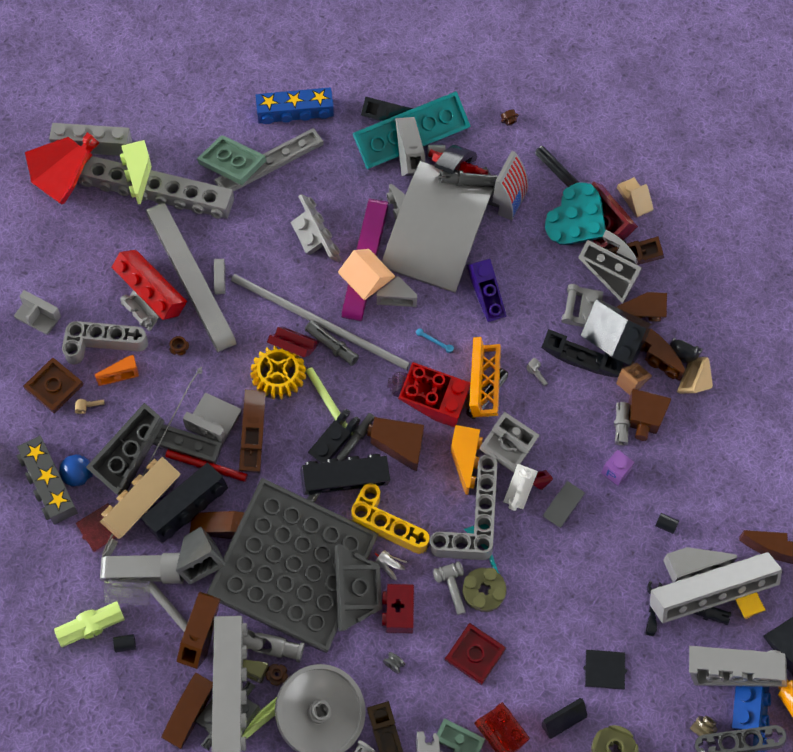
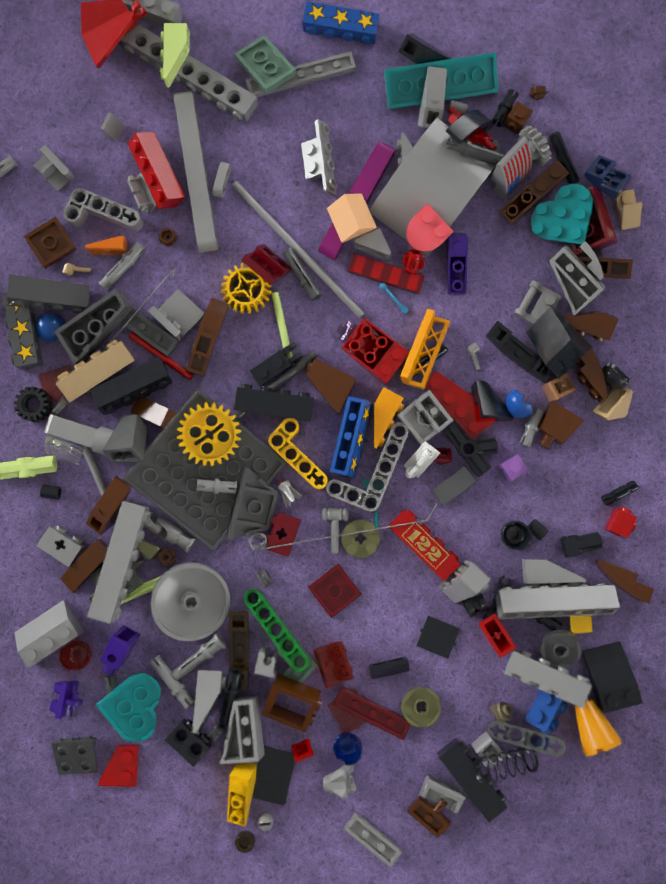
camera: 25 degrees right, 20 degrees up
(67, 432) = (48, 294): none -> dark grey brick
(88, 563) = (23, 399): none -> black tyre
(89, 257) = (112, 127): none -> light grey slope
(140, 383) = (121, 267): none -> light grey pin
(141, 700) = (51, 544): none -> light grey brick
(272, 507) = (219, 448): none -> yellow gear
(311, 575) = (216, 486): none -> light grey pin
(382, 621) = (260, 535): none -> light grey piece
(418, 318) = (385, 273): none -> tile
(423, 701) = (269, 624): none -> green beam
(439, 485) = (351, 437): none -> blue brick
(442, 298) = (413, 260): none -> red gear
(447, 264) = (427, 230): none -> coral slope
(482, 138) = (505, 107): none -> black pin
(498, 143) = (518, 118): none -> reddish brown brick
(531, 163) = (538, 145): none -> light grey gear
(539, 204) = (534, 192): none -> reddish brown slope
(554, 428) = (458, 404): none -> red wing
(554, 573) = (424, 545): none -> red brick
(568, 410) = (488, 402): none -> black slope
(574, 458) = (478, 448): none -> black piece
(599, 405) = (516, 406): none -> blue hair
(607, 174) = (606, 177): none -> dark blue slope
(612, 593) = (465, 582): none -> light grey wedge
(632, 619) = (475, 605): none -> black wheel
(647, 533) = (516, 535): none -> black hair
(666, 642) = (497, 635): none -> red slope
(713, 526) = (576, 545): none -> black piece
(729, 626) = (560, 638): none -> dark grey plate
(737, 460) = (619, 493): none -> black axle
(749, 489) = (621, 522): none -> red brick

